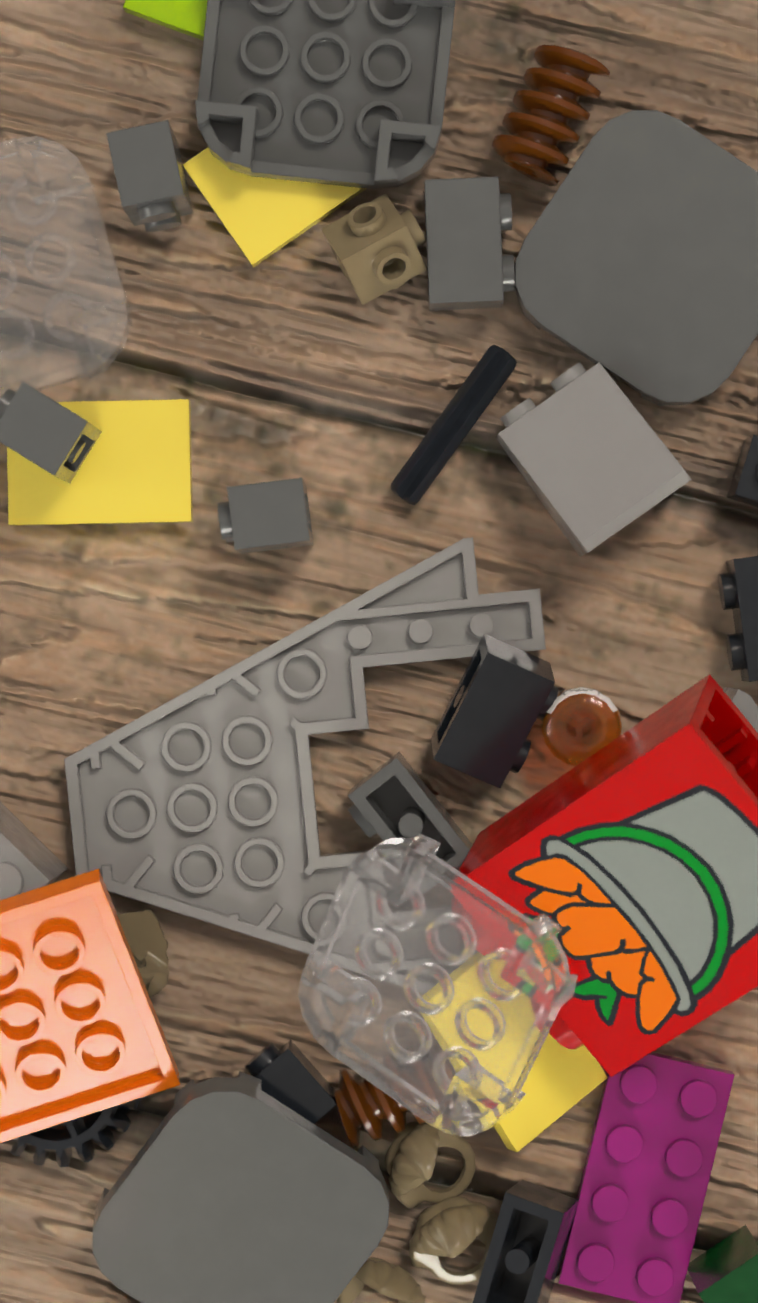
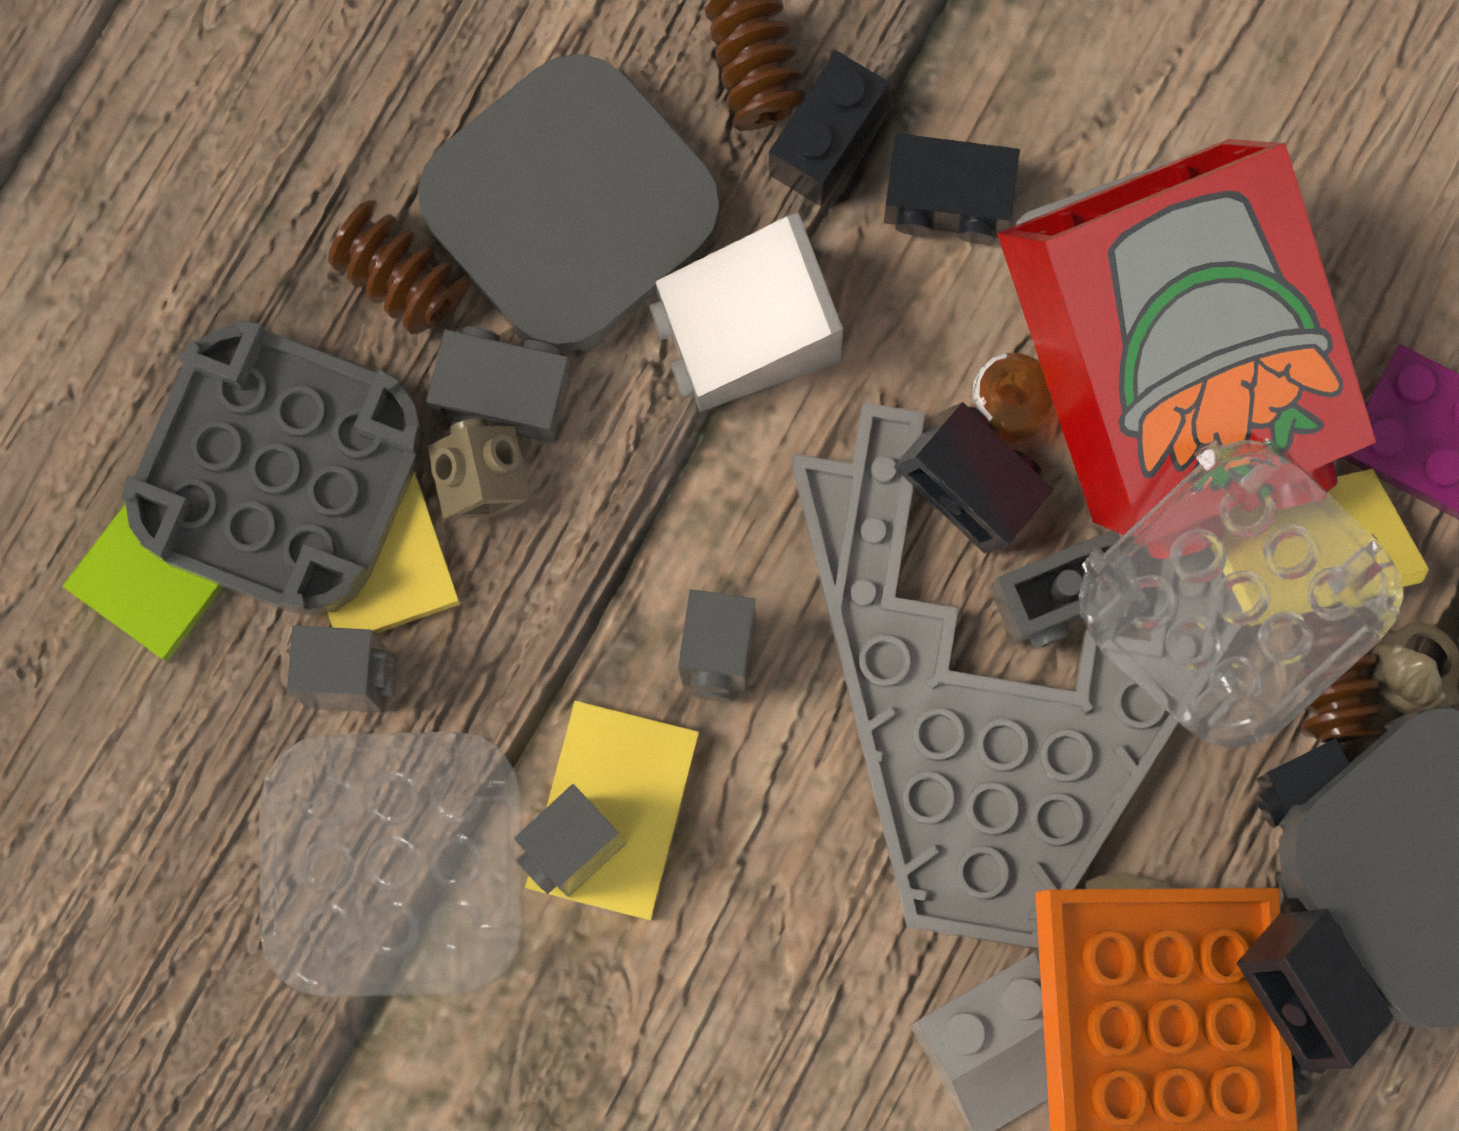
camera: 70 degrees left, 10 degrees down
(93, 1140) = (1315, 990): none -> black brick
(453, 424) = (675, 447): black axle -> none

